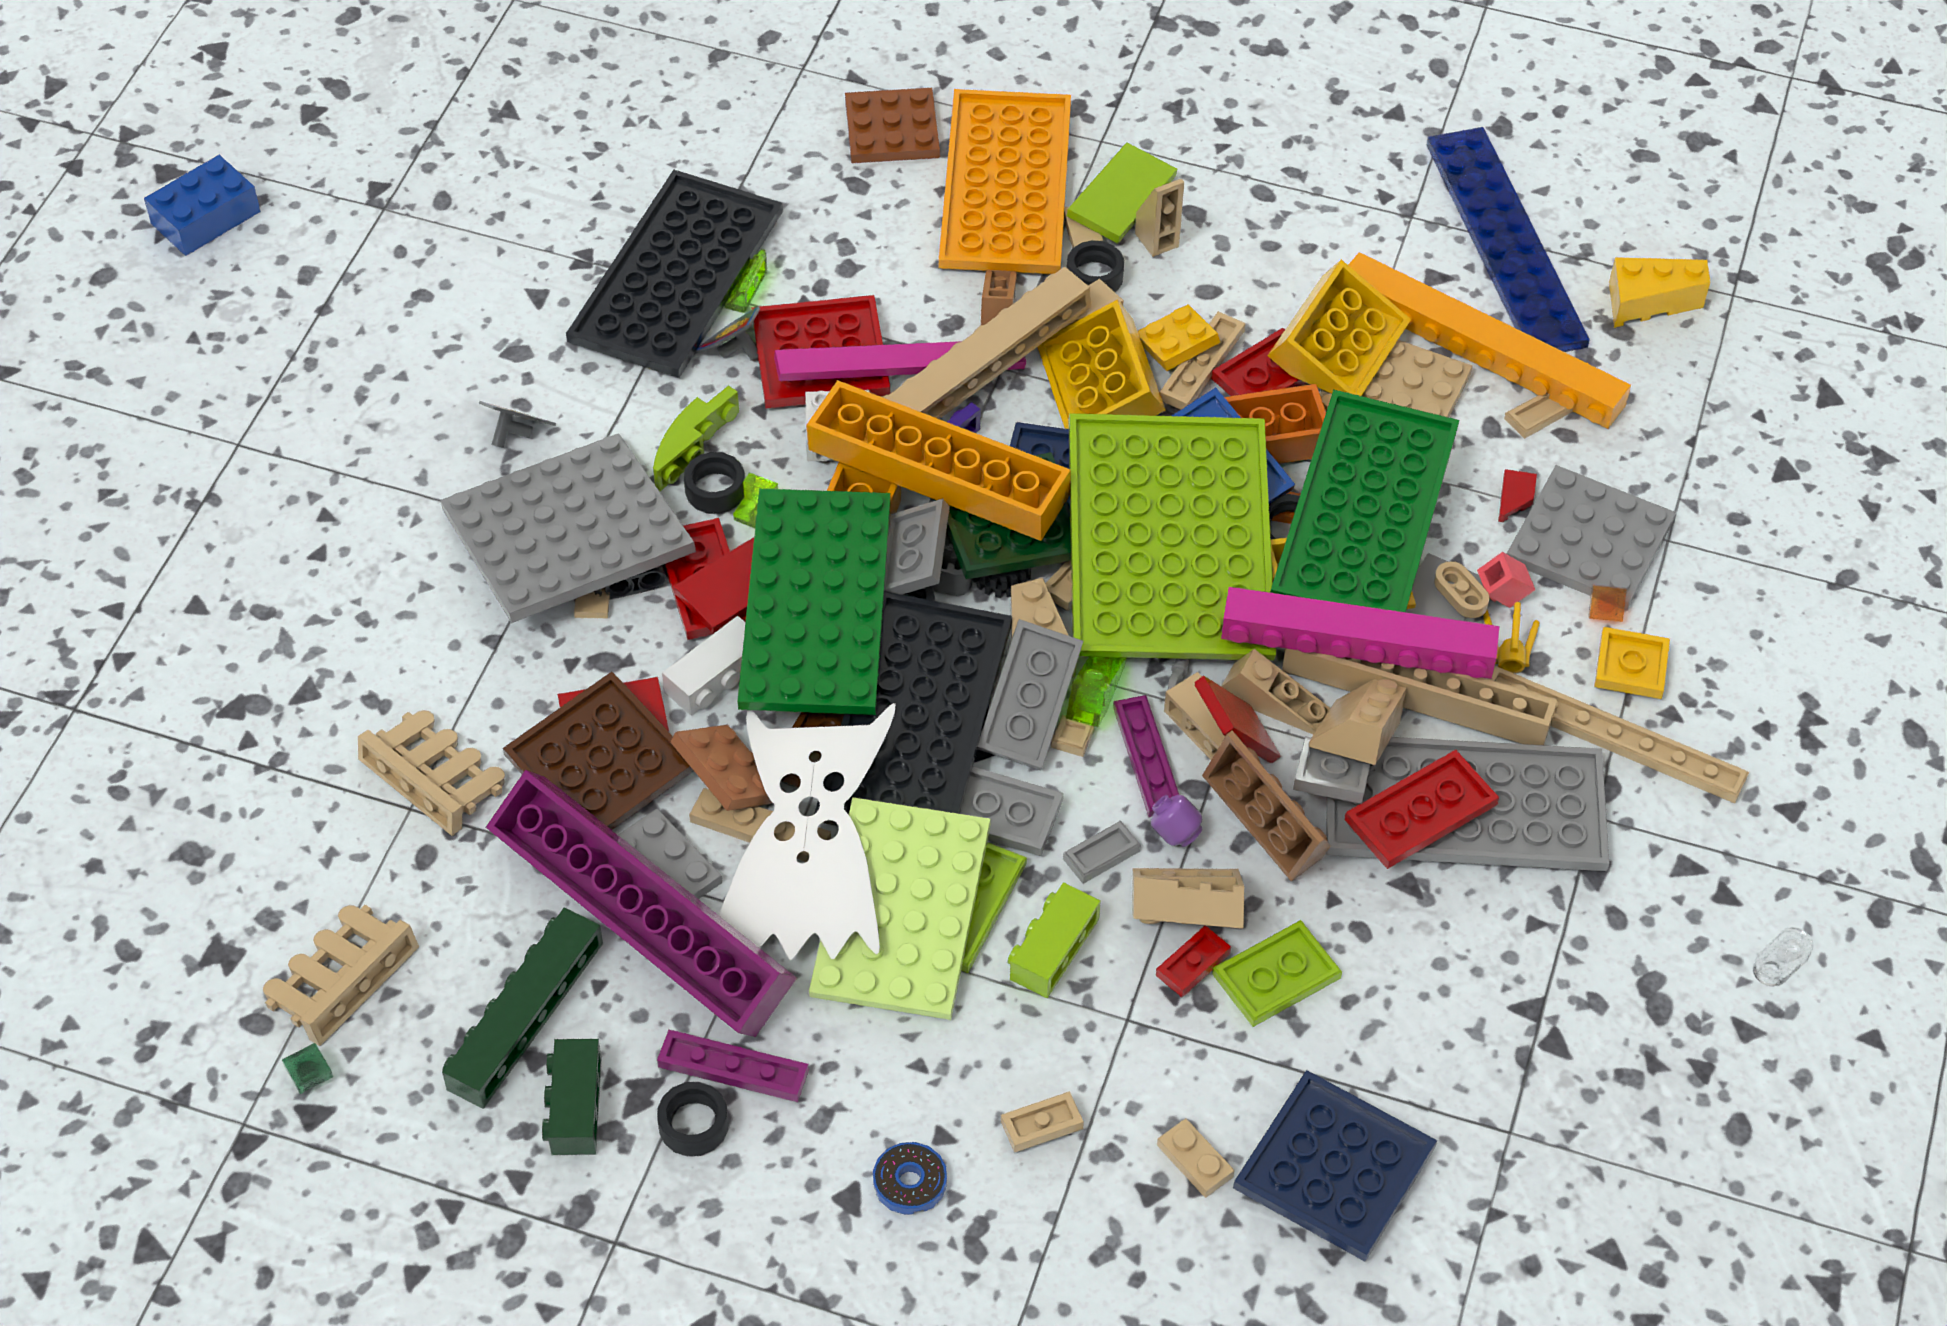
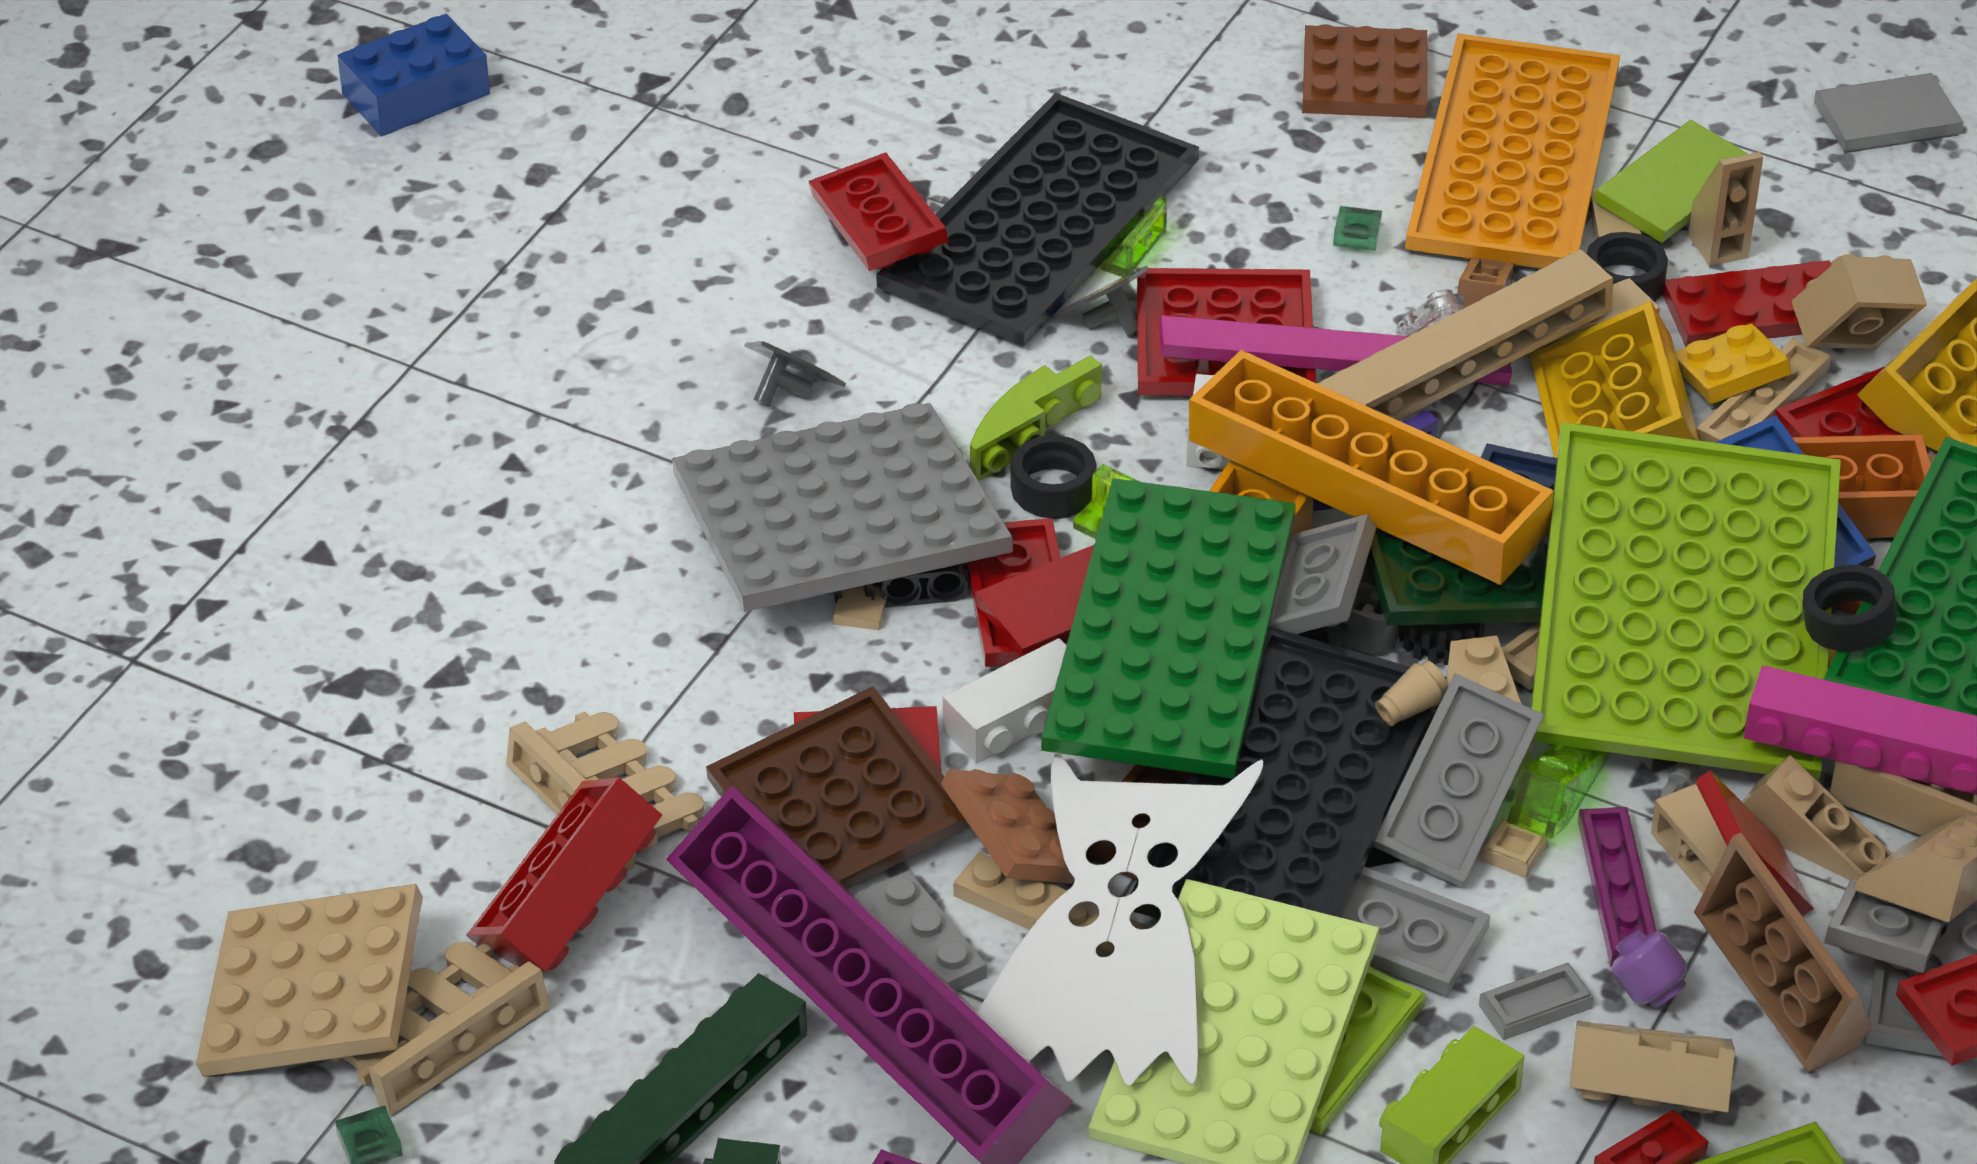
camera: 10 degrees right, 10 degrees down
(246, 952) = (310, 980): none -> tan plate
(416, 848) = (567, 874): none -> red slope
(560, 283) = (878, 212): none -> red plate
(903, 256) = (1357, 228): none -> clear green plate
(962, 328) = (1438, 307): none -> clear plate
(992, 632) = (1413, 693): none -> tan cone
(1196, 280) = (1762, 296): none -> red plate
(1261, 282) = (1858, 302): none -> tan brick
(1262, 119) = (1888, 112): none -> light grey tile
(1280, 515) = (1852, 631): none -> black tyre

